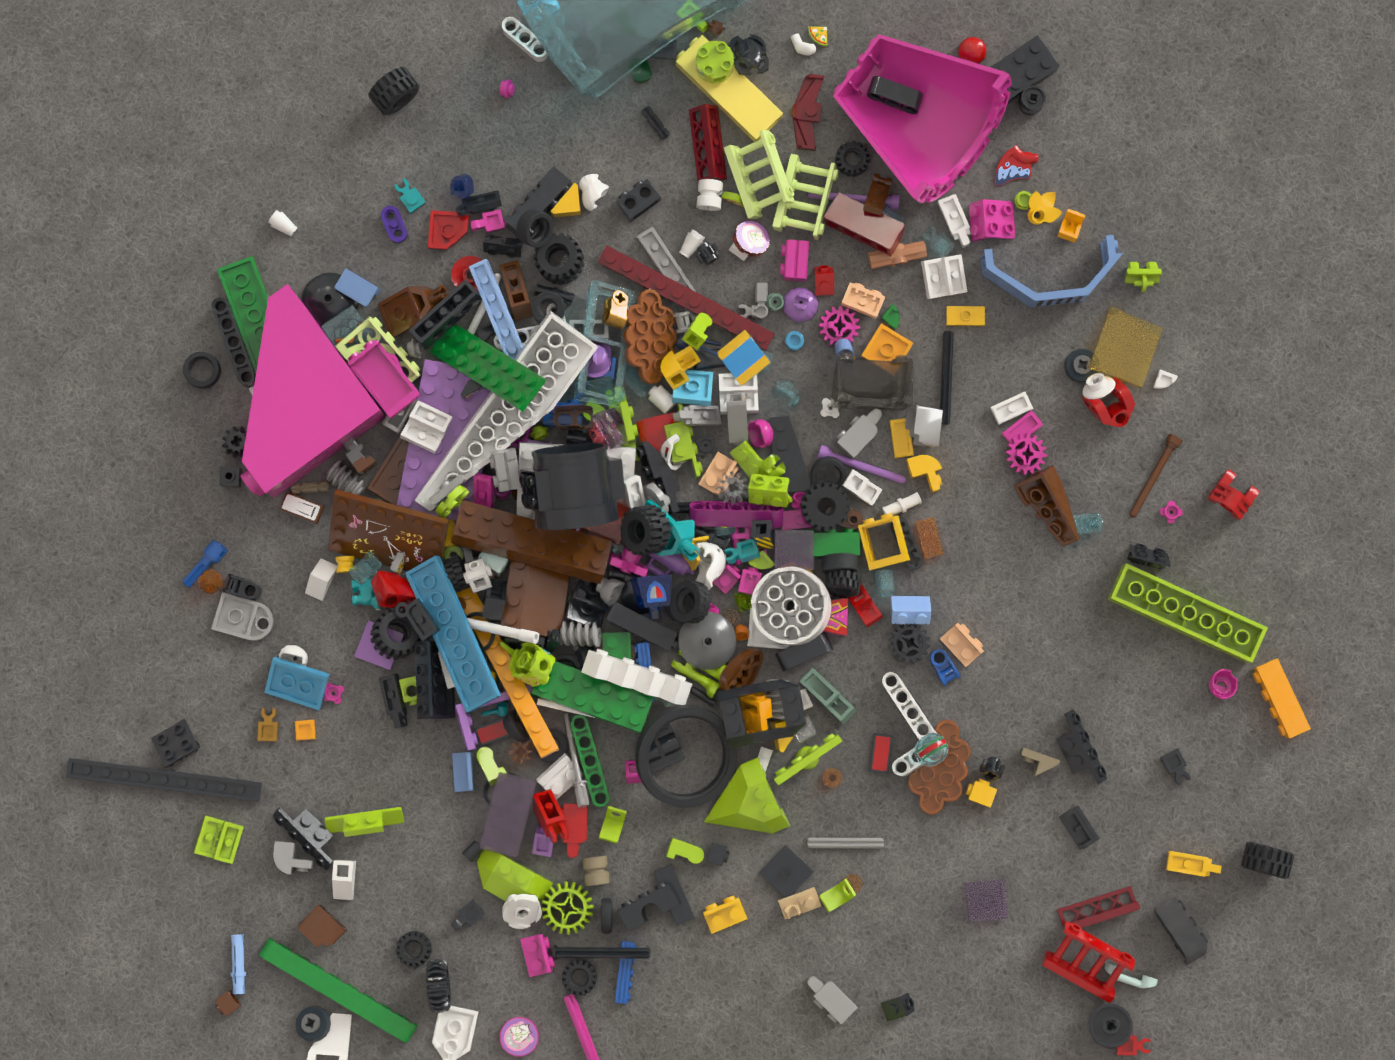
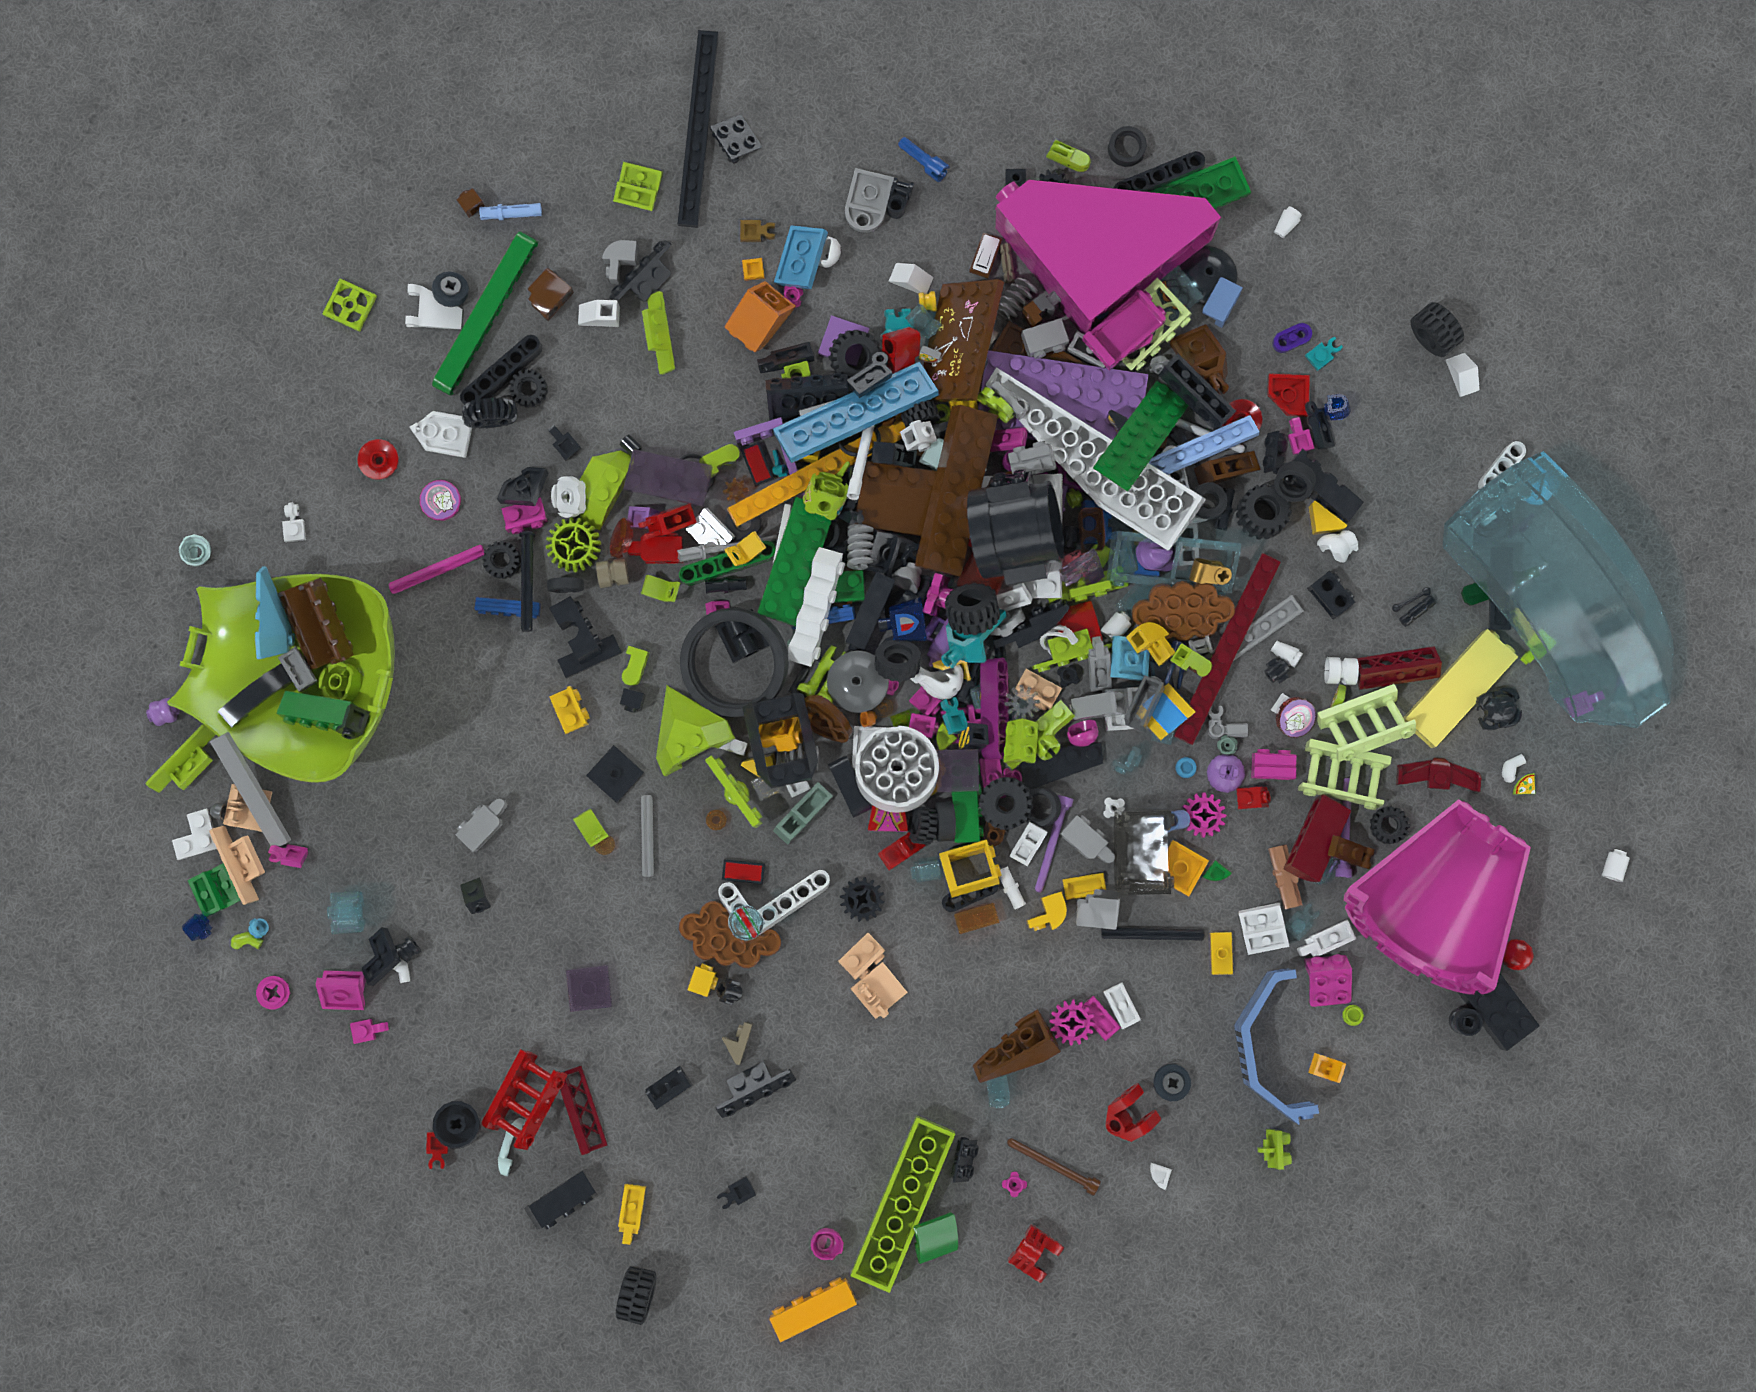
camera: 90 degrees right, 0 degrees up
(209, 425) = (1069, 156): none -> lime arm
(210, 581) = (904, 164): clear orange gear -> none
(353, 724) = (759, 316): none -> orange slope
(387, 453) = (1045, 339): none -> light grey brick
(387, 971) = (504, 362): none -> black beam
(426, 427) = (1075, 377): white slope -> none
(434, 68) = (1464, 374): none -> white slope
(463, 771) = (713, 432): medium blue panel -> none
(507, 89) = (1446, 451): dark pink plate -> none
(512, 729) = (757, 479): black tyre -> none
(512, 955) = (522, 489): none -> black plate
(563, 861) = (621, 538): none -> clear red tile
(579, 741) = (746, 549): none -> yellow bracket
(610, 763) = (725, 585): none -> black pin
(637, 114) = (1425, 592): none -> black hinge
(714, 62) = (1488, 669): lime brick -> none
(715, 26) = (1527, 672): reddish brown plate -> none
(735, 375) = (1144, 703): none -> dark grey window
(799, 903) = (582, 788): tan plate -> none
(863, 300) = (1233, 840): light nougat bracket -> none
(895, 95) = (1463, 869): black beam -> none
(910, 609) = (897, 899): light blue brick -> none
(944, 667) = (836, 937): blue piece -> none
(994, 629) = (879, 990): none -> light nougat hinge
(1014, 165) = (1391, 1004): arm -> none
(1044, 206) = (1347, 1038): yellow plate -> none
(1098, 386) = (1149, 1100): white piece -> none
(1125, 347) = (1194, 1131): clear yellow piece -> none
(1218, 584) = (936, 1237): none -> green slope

